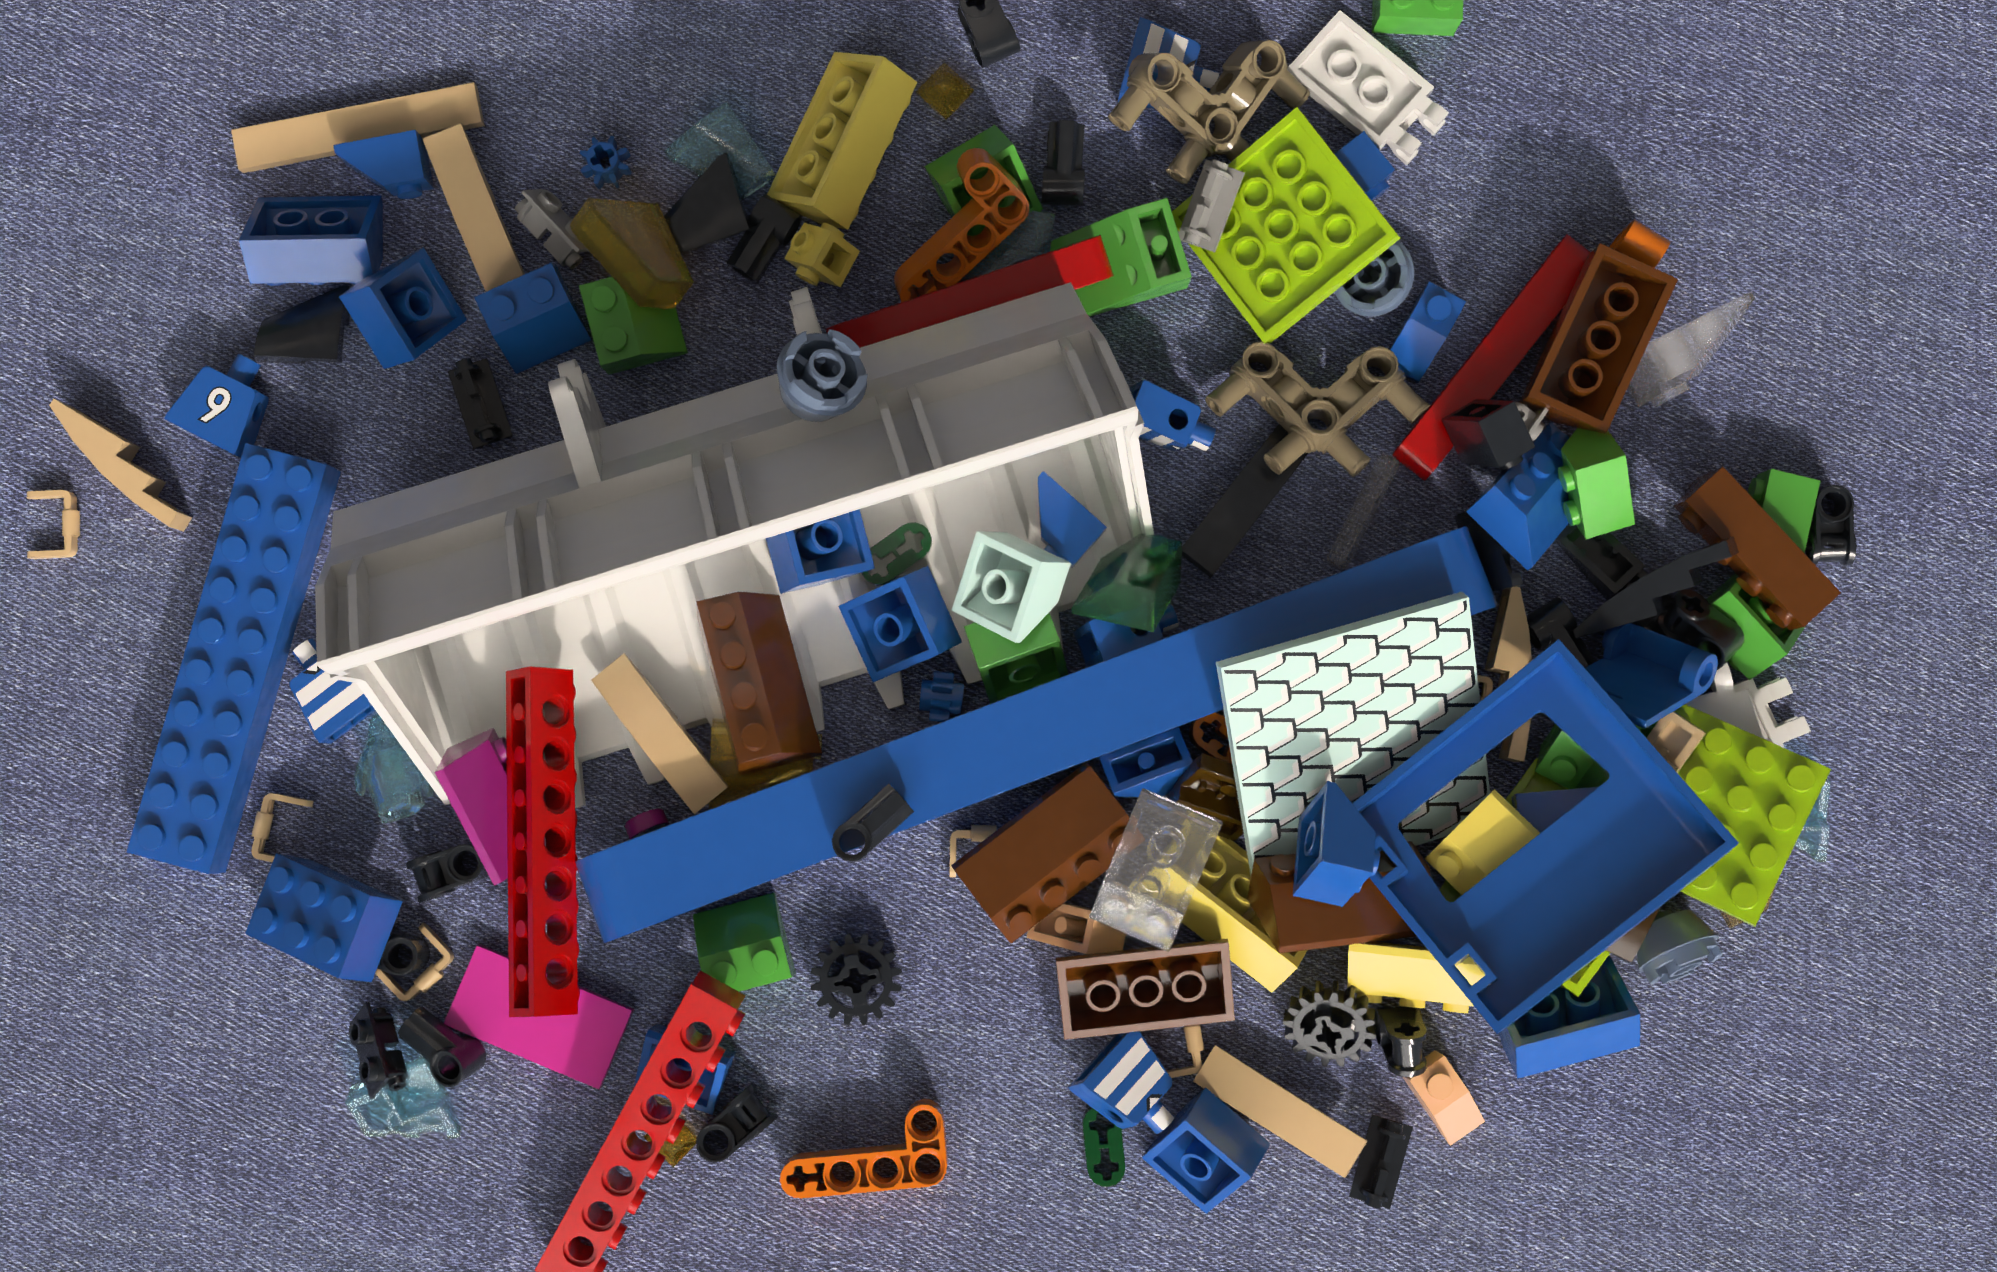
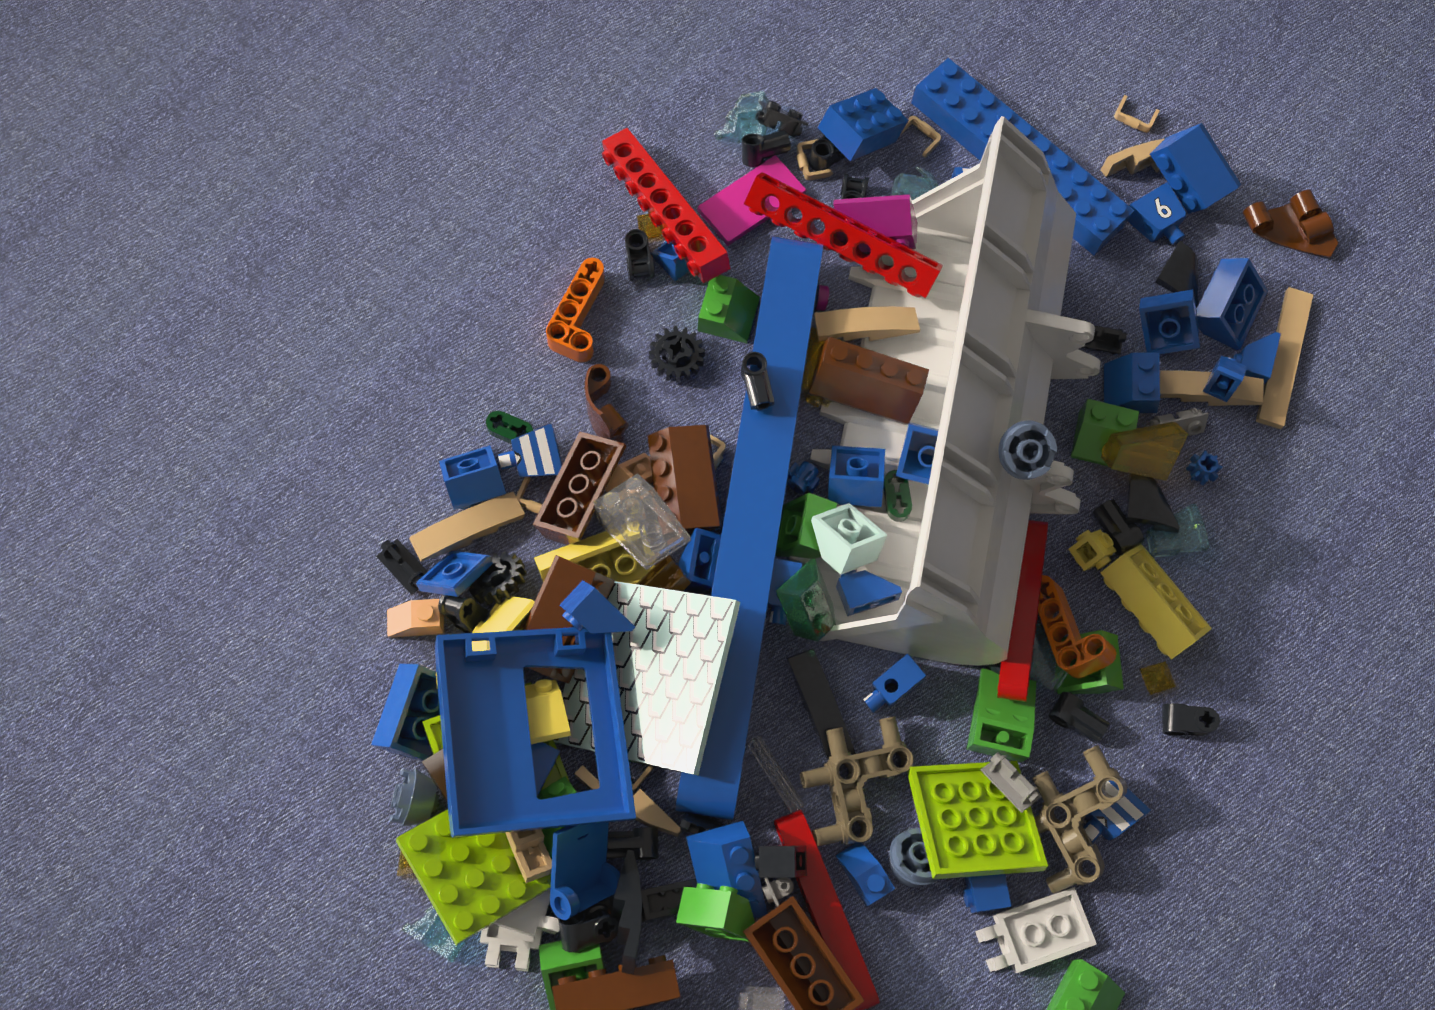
camera: 115 degrees right, 15 degrees down
(124, 386) = (1195, 168): none -> blue slope
(125, 205) = (1294, 225): none -> reddish brown panel
(459, 187) = (1225, 378): none -> blue slope
(1028, 1007) = (607, 420): none -> reddish brown panel
(1362, 1082) = (454, 573): none -> blue tile

